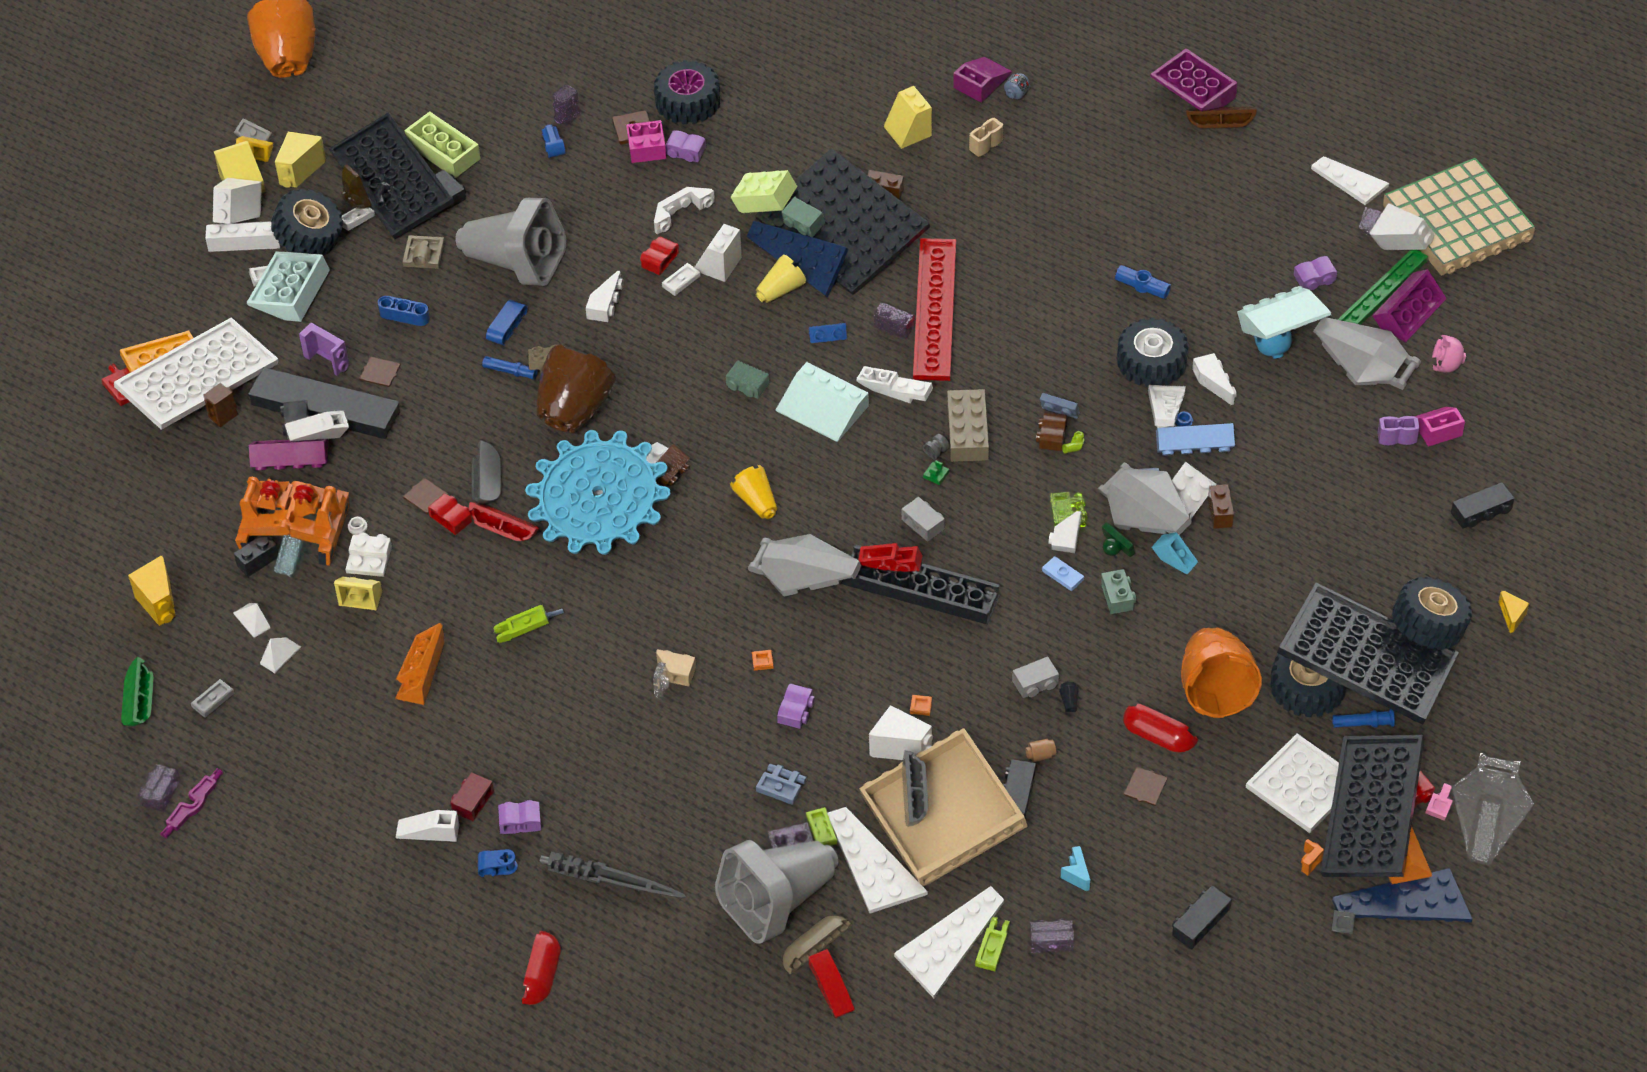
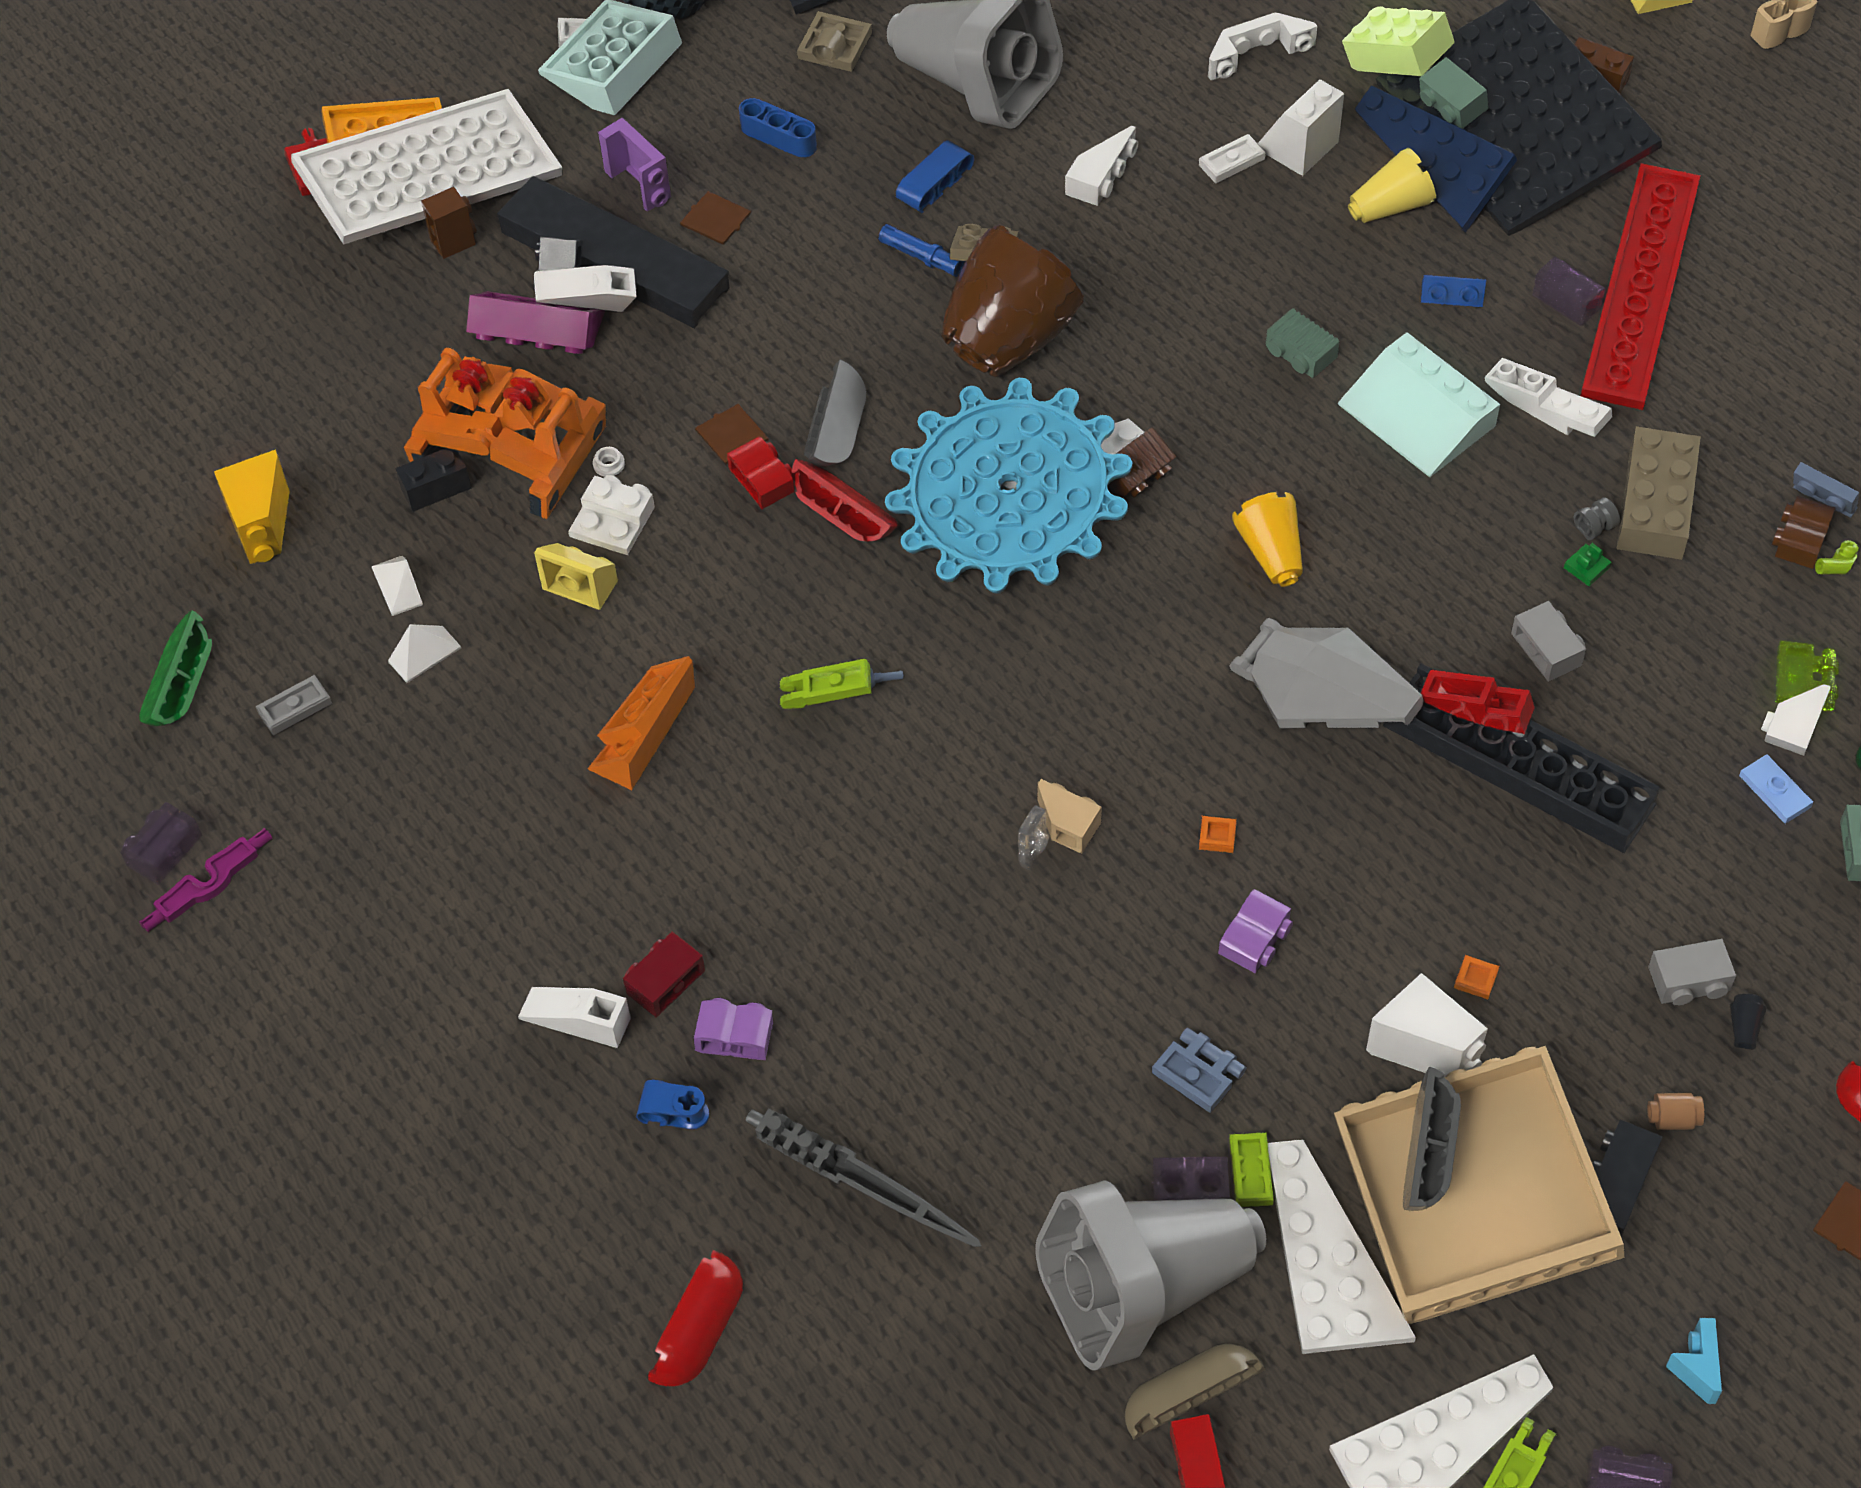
camera: 15 degrees right, 5 degrees up
(288, 555) = (482, 490): clear light blue tile -> none
(659, 255) = (1205, 114): red brick -> none

